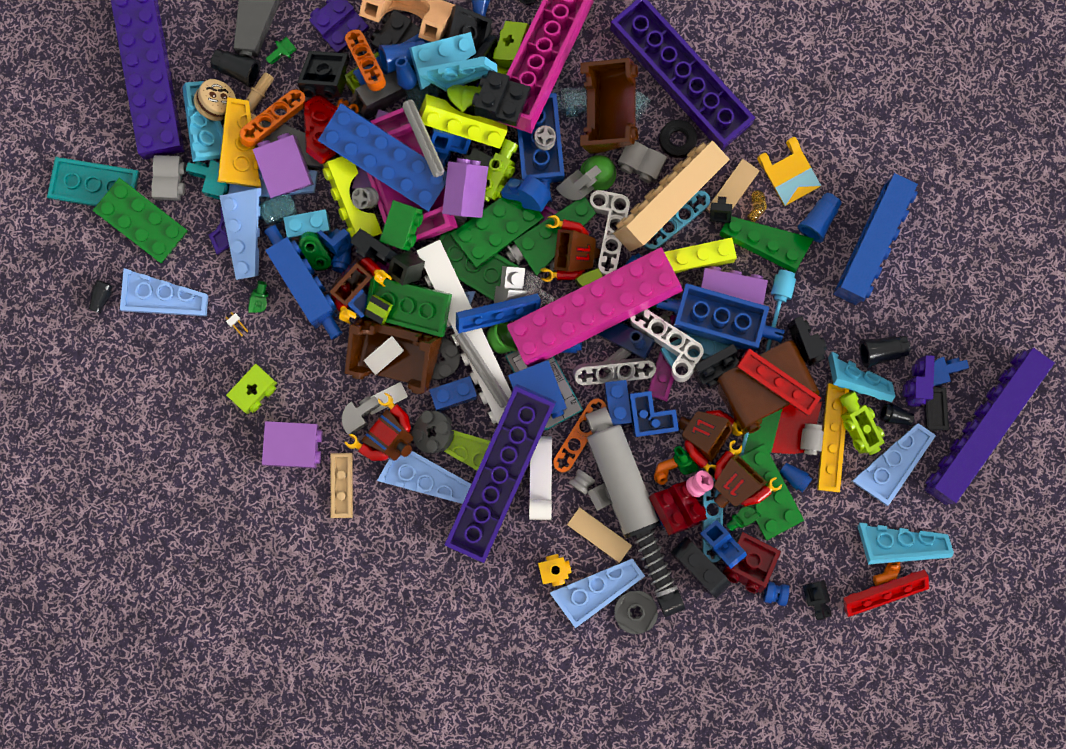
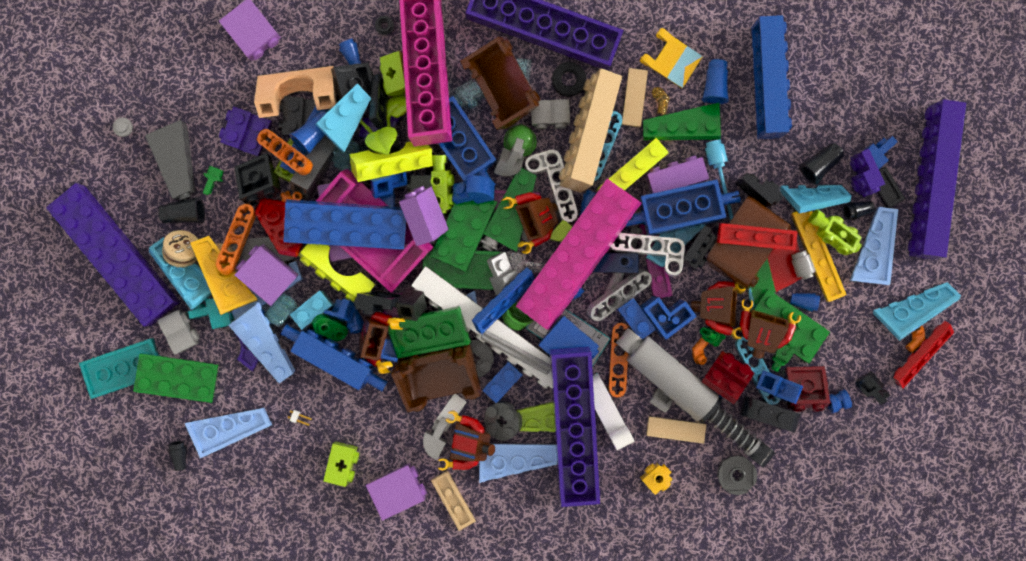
camera: 25 degrees left, 5 degrees up
(257, 300) = (305, 388): green piece -> none
(259, 90) = (212, 221): tan axle -> none
(361, 202) = (346, 269): light grey wheel -> none
(378, 309) = (406, 348): tile -> none
(383, 355) = (430, 381): white sticker -> none
(401, 225) = (389, 272): green brick -> none
(405, 74) = (323, 146): blue cone -> none
(423, 138) = (369, 194): light grey axle -> none
(457, 72) = (366, 123): medium azure wing -> none
(500, 98) = (413, 127): black plate -> none
(545, 133) = (464, 134): light grey wheel -> none
(581, 481) = (640, 396): light grey wheel -> none
(591, 594) = (696, 477): light blue wing -> none
(699, 483) = (735, 349): bright pink wheel -> none
(720, 211) = (635, 120): black tile -> none

